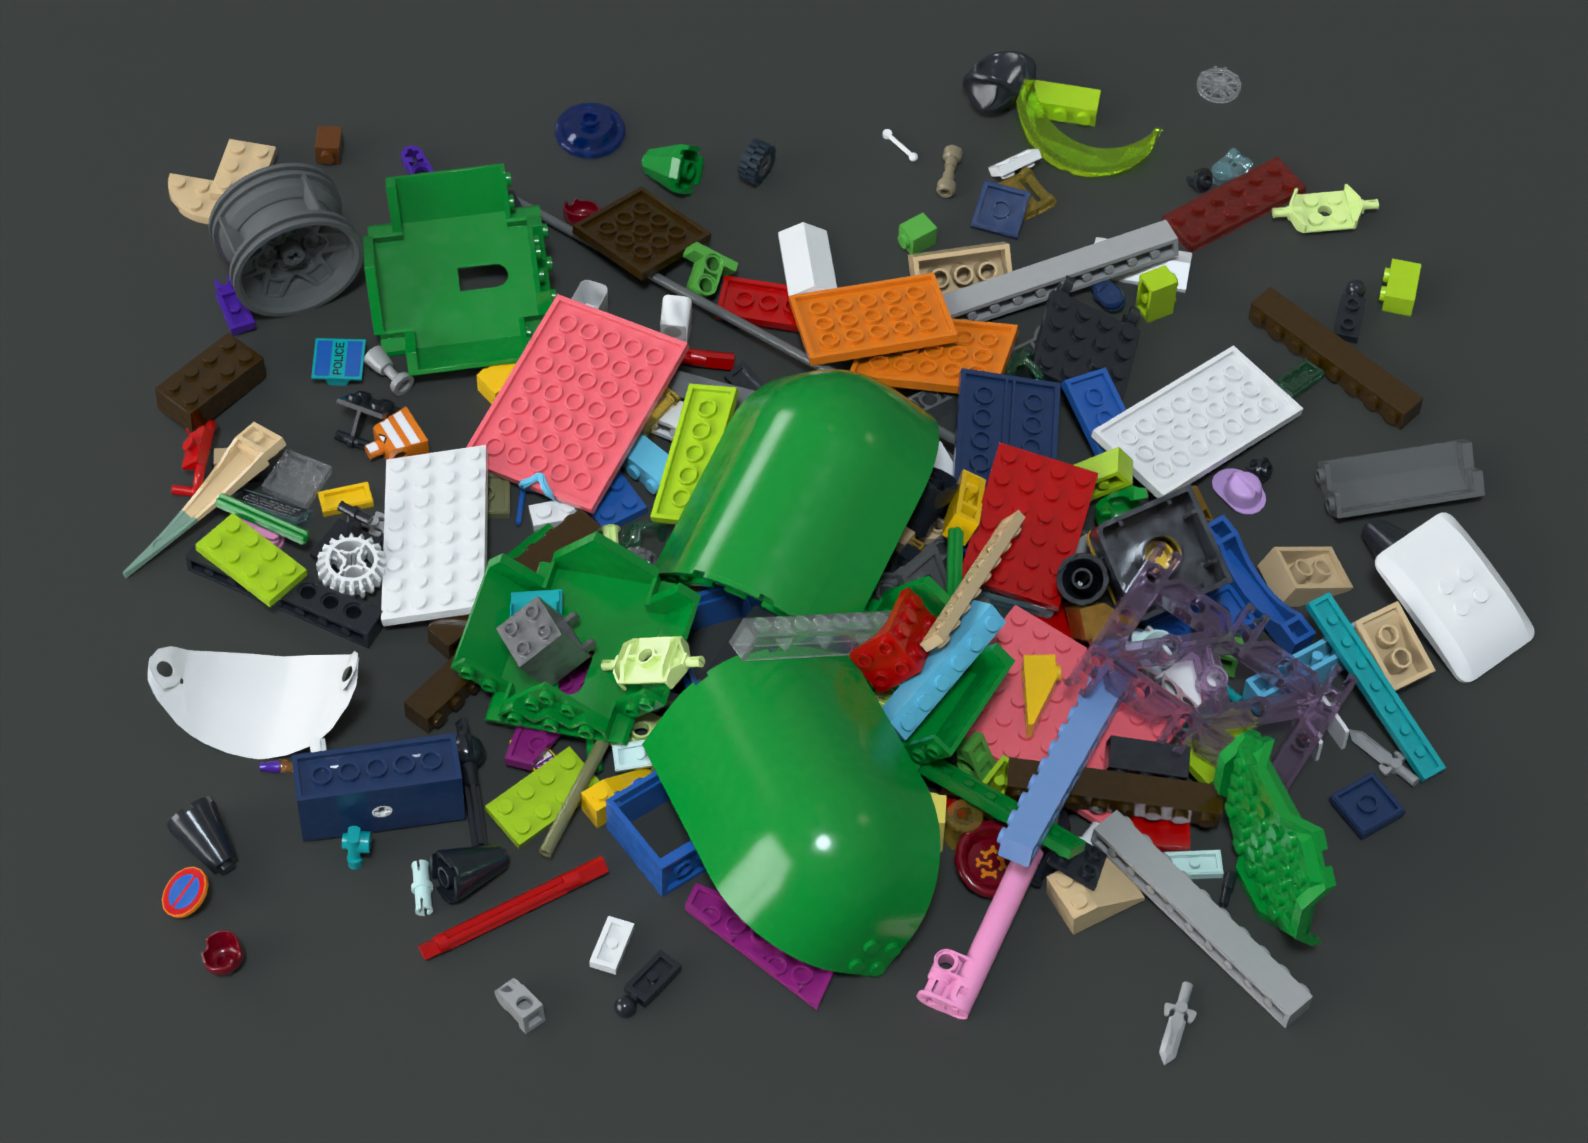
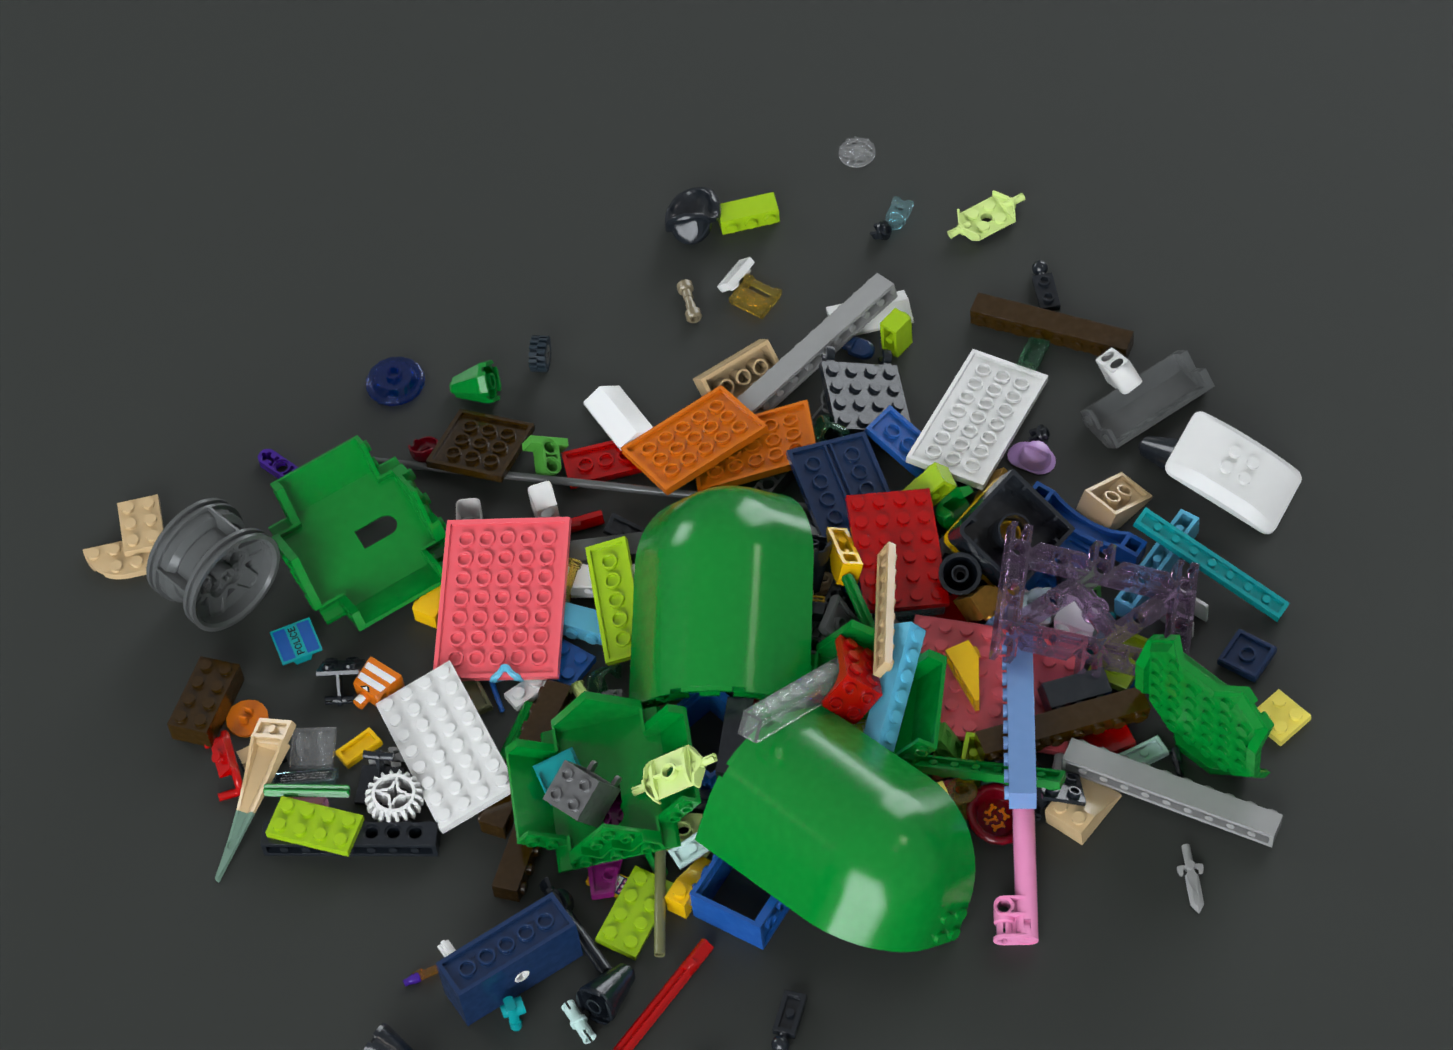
camera: 15 degrees left, 0 degrees up
(235, 314) = (190, 634): dark purple plate -> none
(244, 413) = (244, 717): none -> orange piece
(253, 701) = (377, 932): white piece -> none
(329, 145) = (197, 475): reddish brown brick -> none
(381, 363) = (330, 630): light grey piece -> none
(612, 945) = (746, 1002): white plate -> none
(799, 977) = (822, 946): magenta wing -> none
(887, 134) = (626, 291): white hinge -> none
(917, 234) = (691, 360): bright green brick -> none
(1001, 209) = (744, 315): dark blue plate -> none
(1072, 155) = (777, 251): clear neon green windscreen -> none
(1233, 204) = (916, 239): clear red plate -> none
(1369, 889) = (1286, 716): none -> light yellow plate
(1382, 434) = (1118, 371): none -> white piece
(1384, 757) = (1240, 614): light grey sword -> none
(1394, 646) = (1210, 527): tan slope -> none
(1401, 287) = (1072, 253): lime brick -> none

